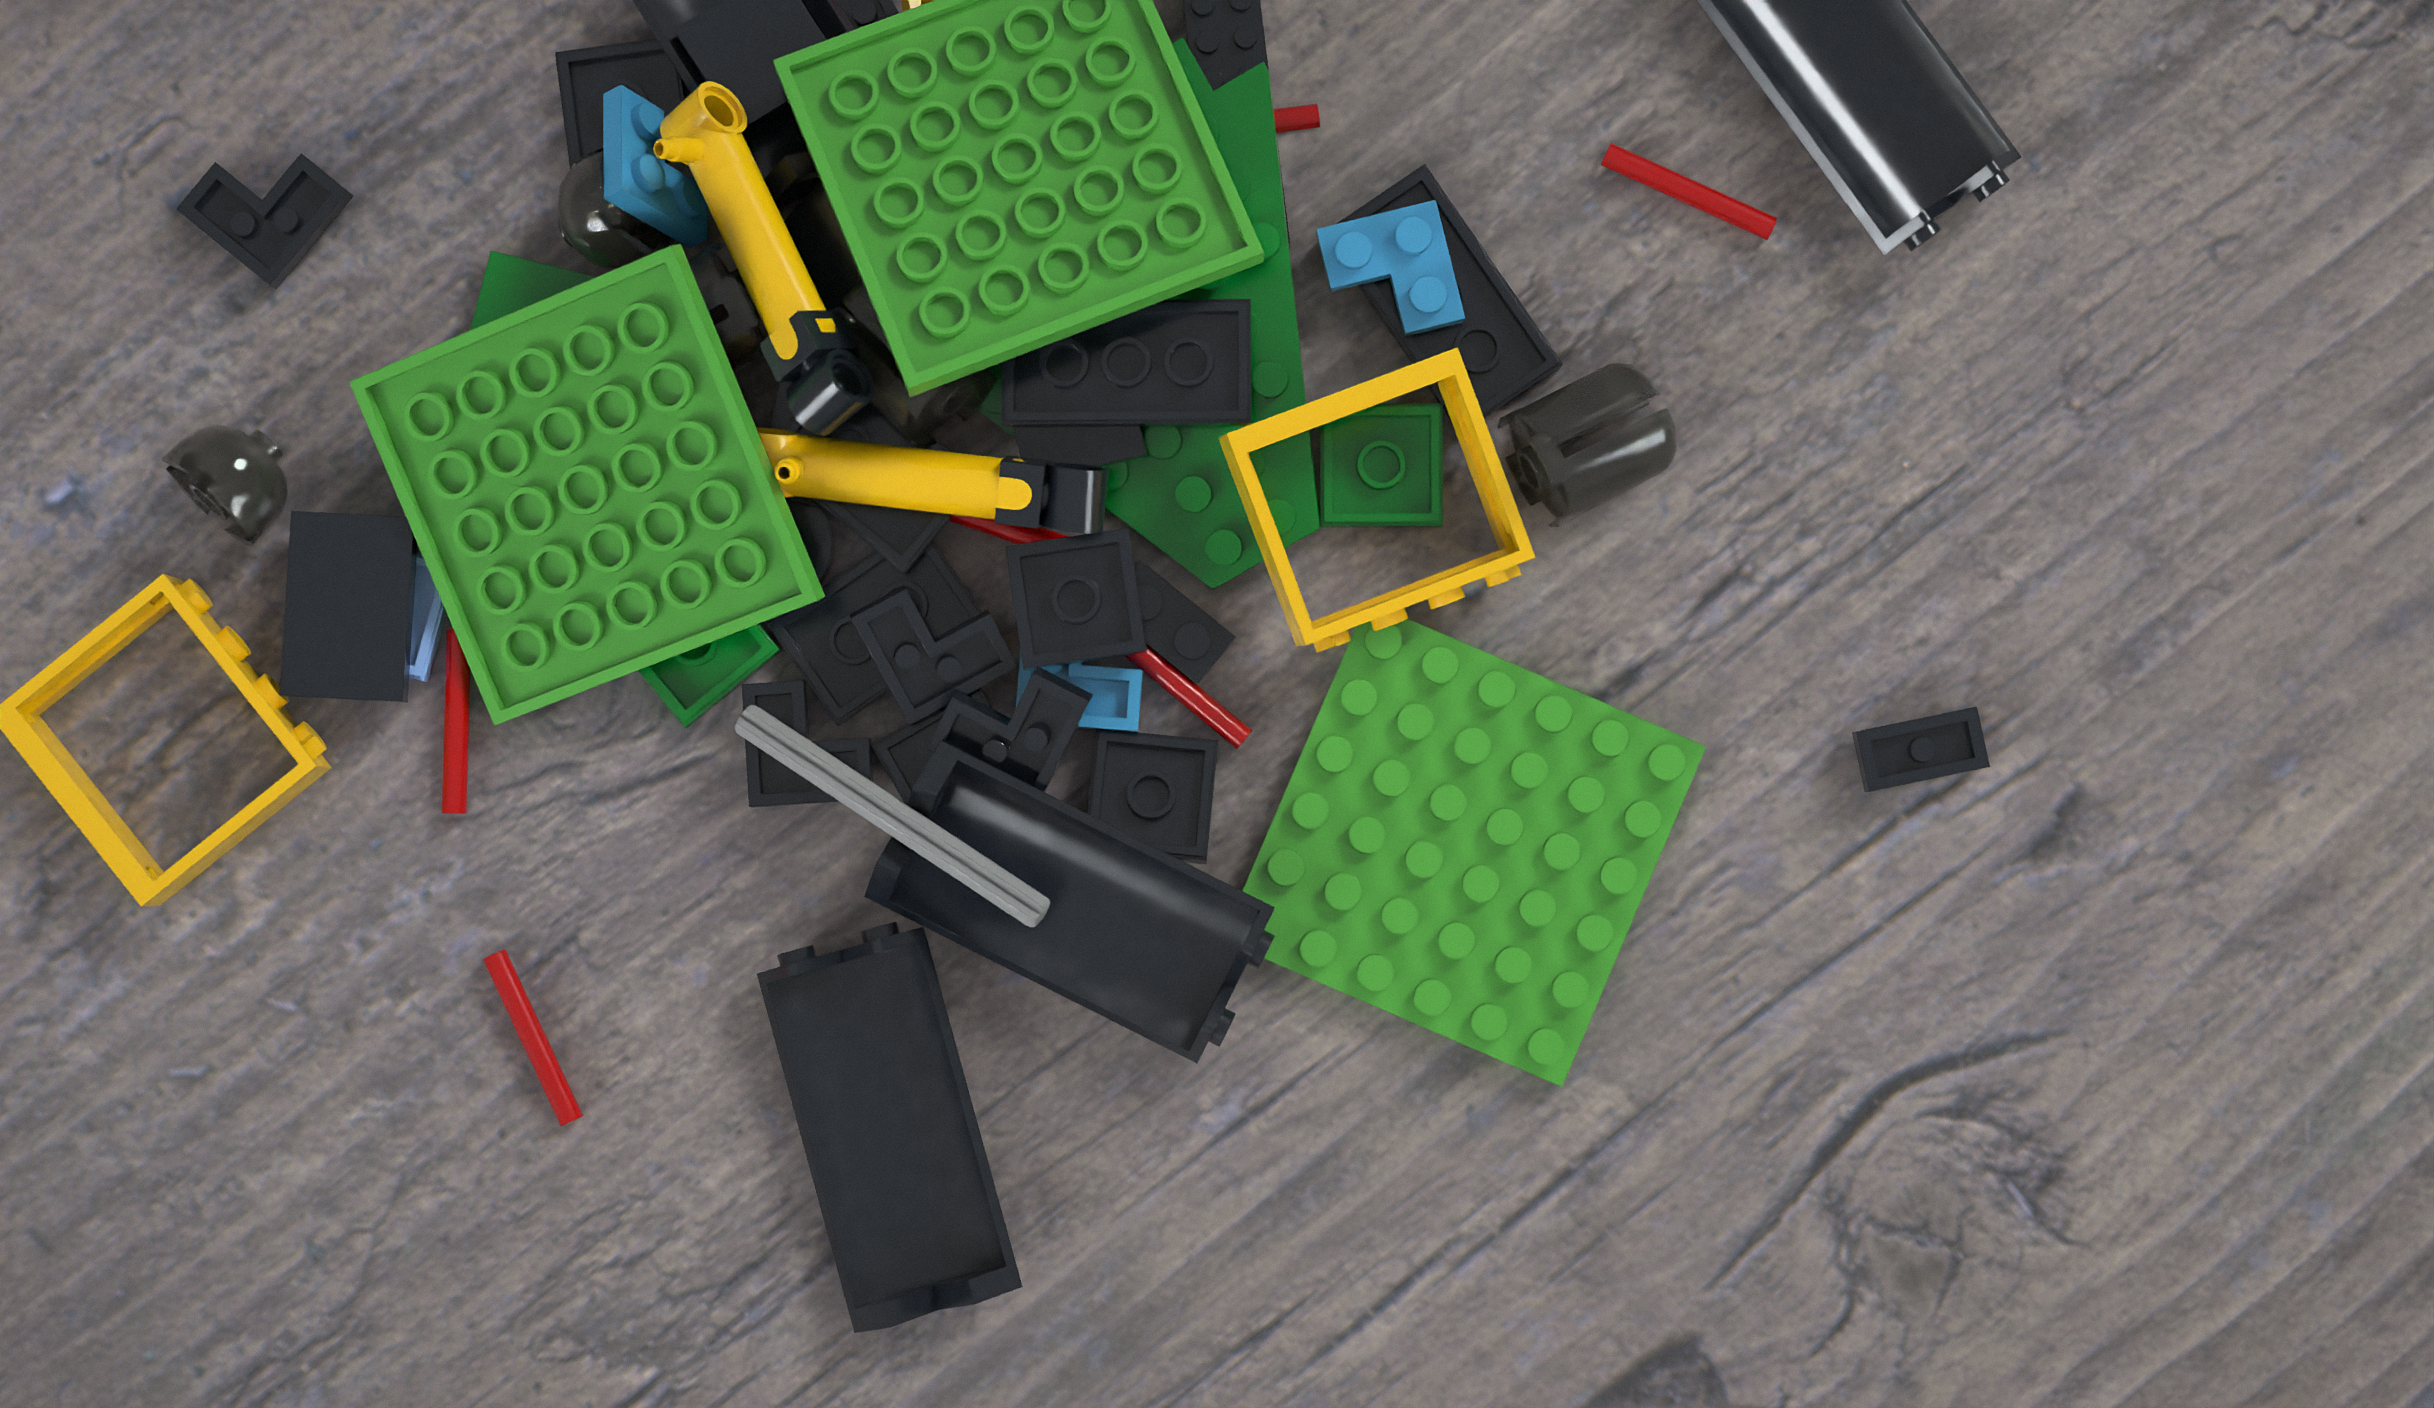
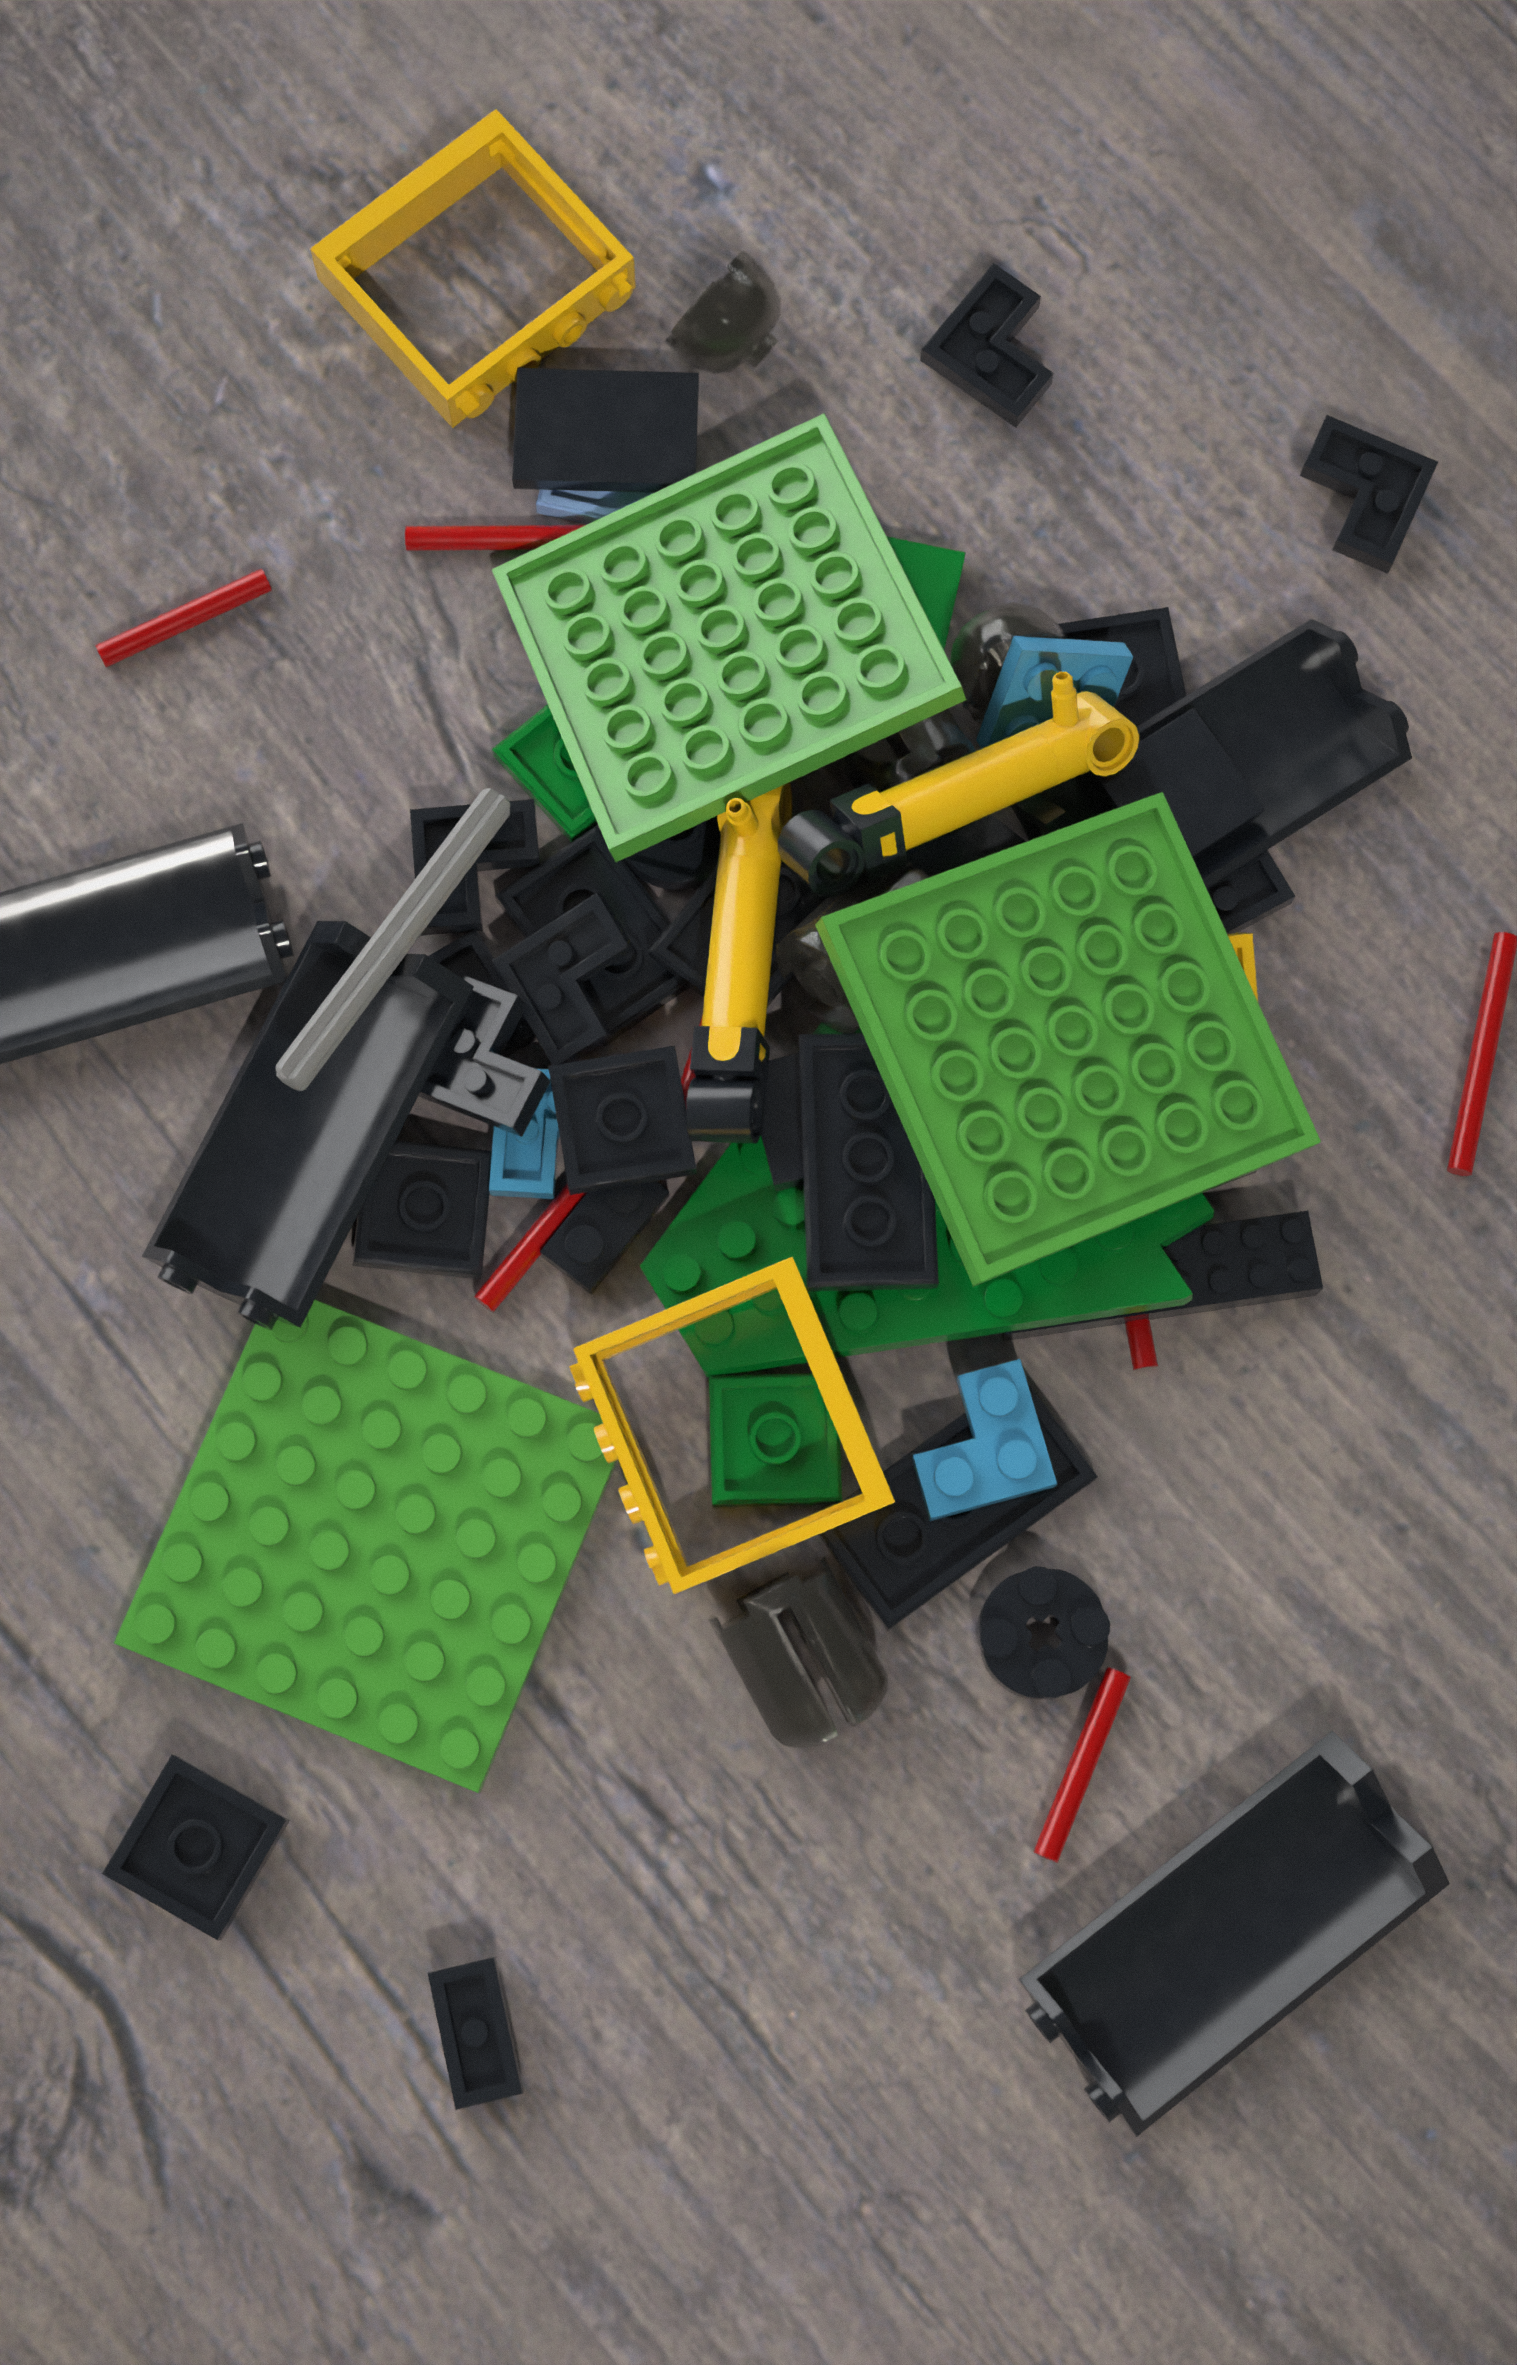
camera: 80 degrees right, 10 degrees down
(1568, 186) = (1081, 1630): none -> black plate
(1750, 1006) = (196, 1847): none -> black plate

